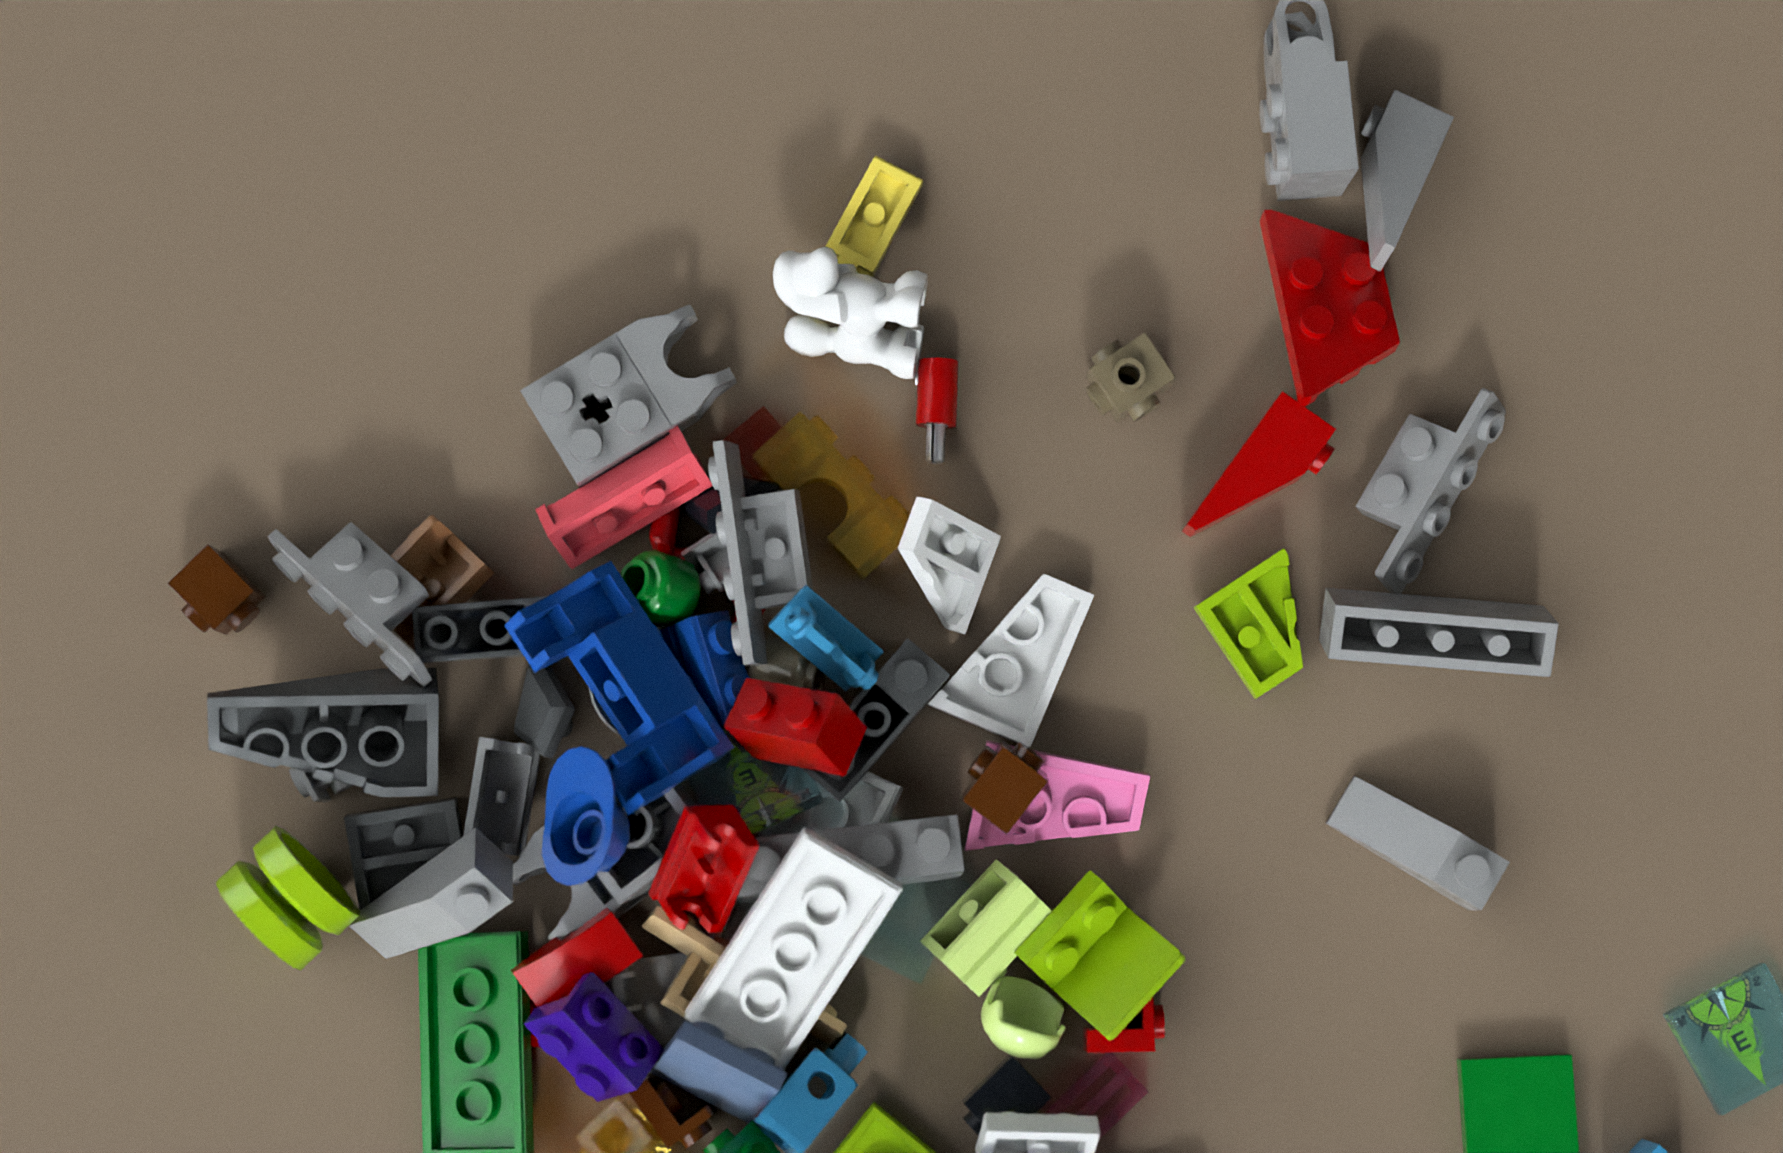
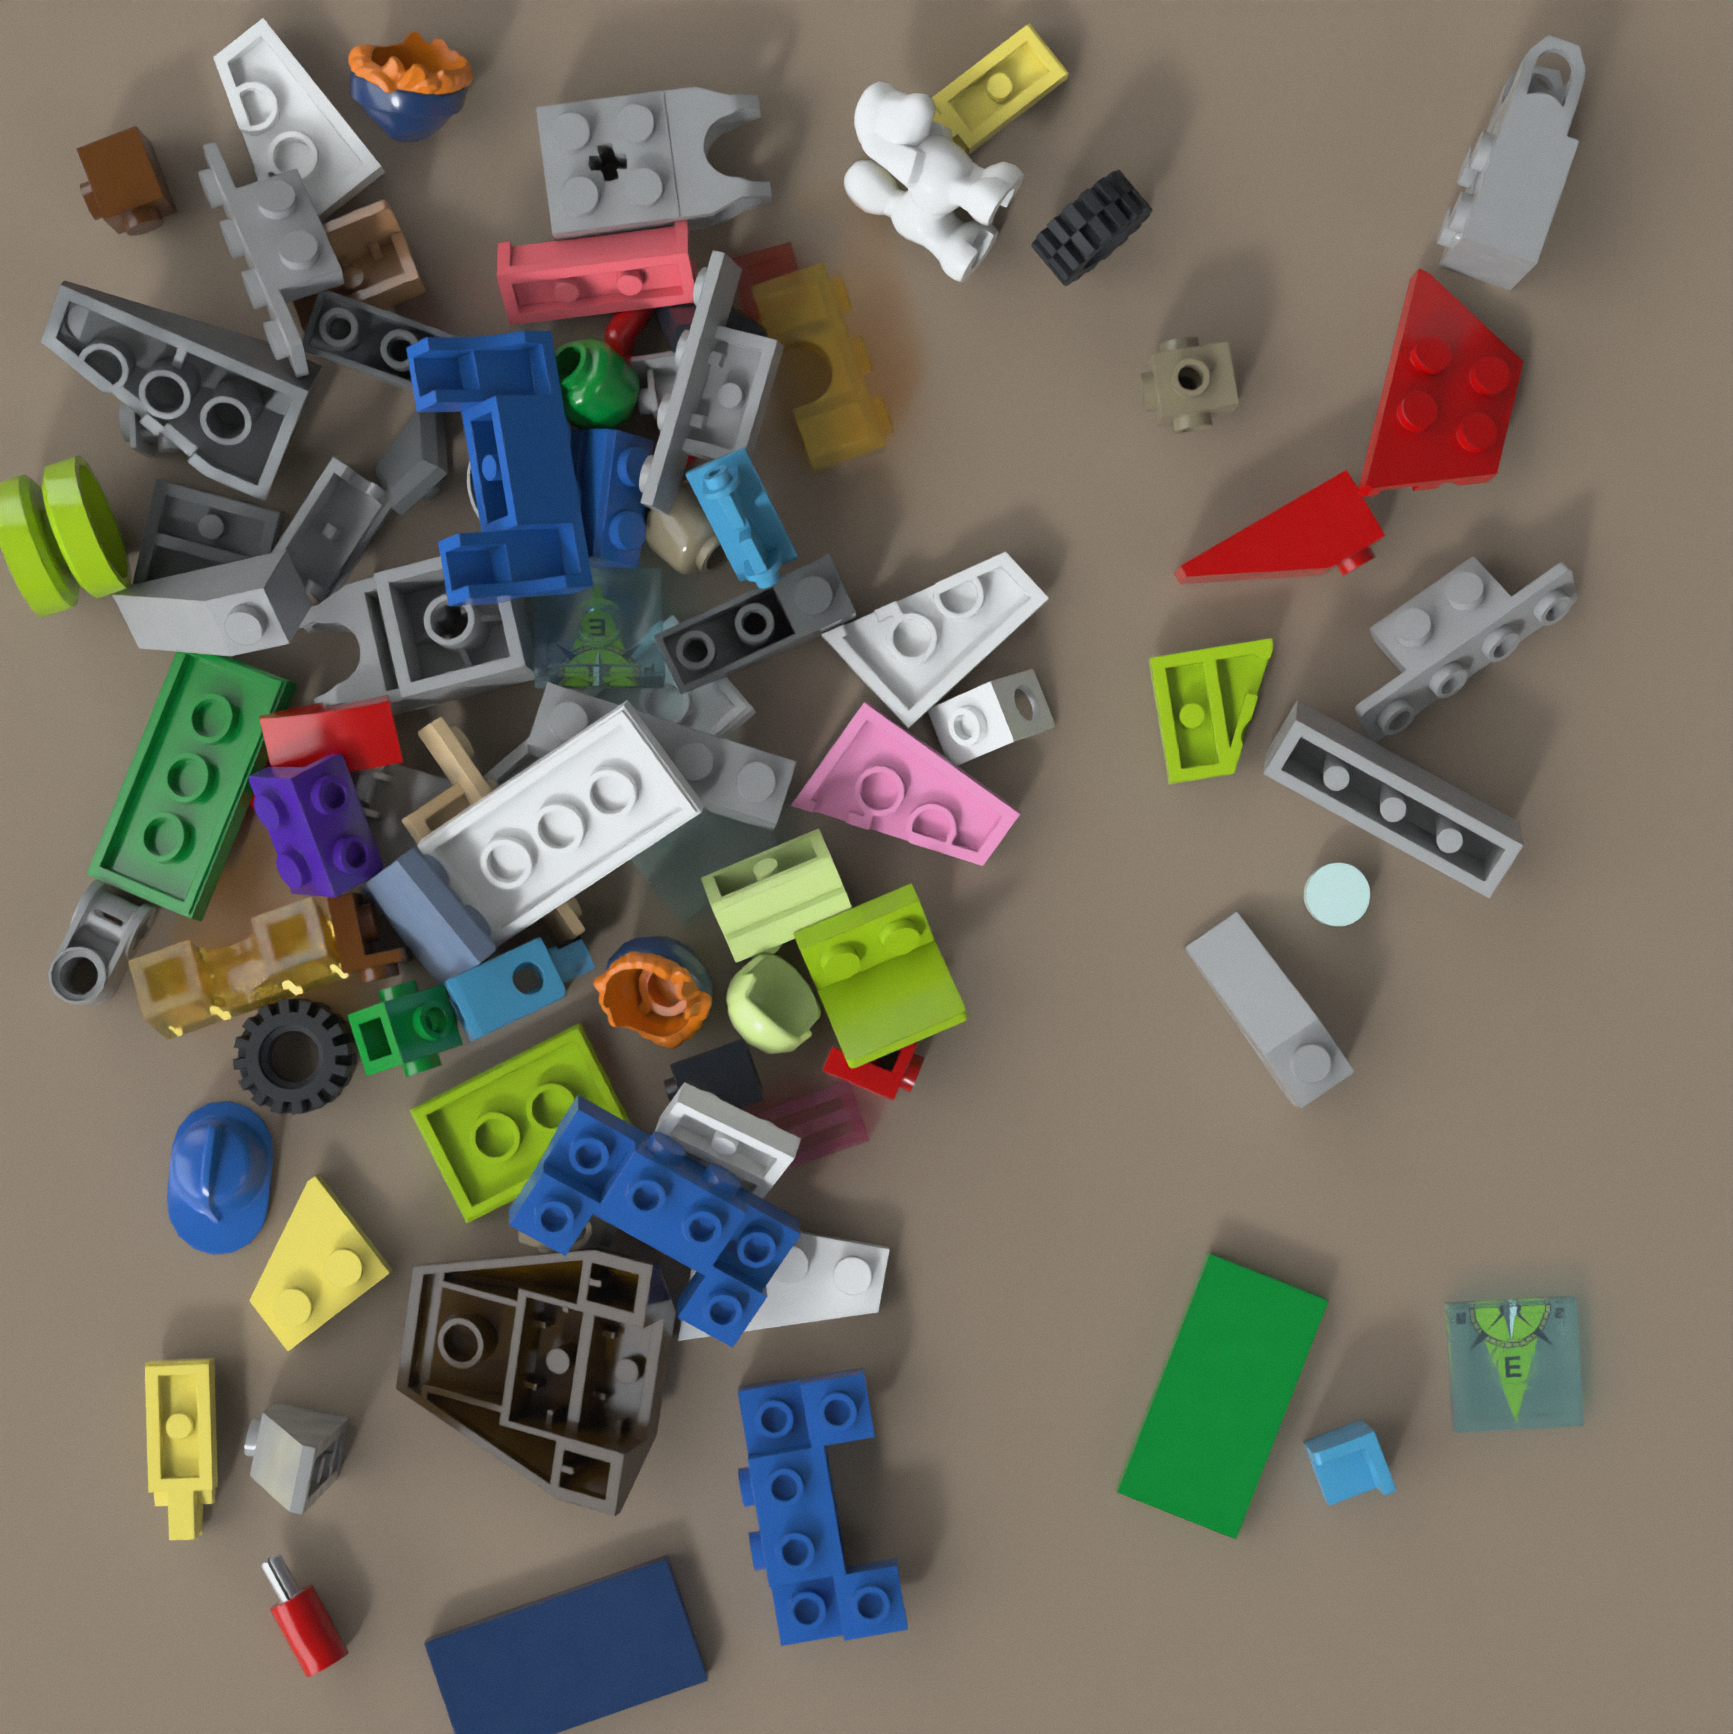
camera: 25 degrees right, 5 degrees up
(327, 485) = (292, 121): none -> white wing
(410, 416) = (409, 85): none -> hair
(582, 820) = (400, 591): blue piece -> none
(704, 866) = (506, 695): red hinge -> none
(795, 726) = (667, 592): red brick -> none
(925, 1047) = (656, 990): none -> orange hair
(936, 402) = (975, 319): red piece -> none
(948, 559) = (910, 490): white wing -> none
(997, 291) = (1091, 227): none -> black tyre
(1004, 783) = (862, 752): reddish brown brick -> none
(1090, 710) = (989, 717): none -> white bracket
(1396, 165) = (1582, 280): light grey slope -> none
(1427, 727) = (1337, 894): none -> light aqua tile

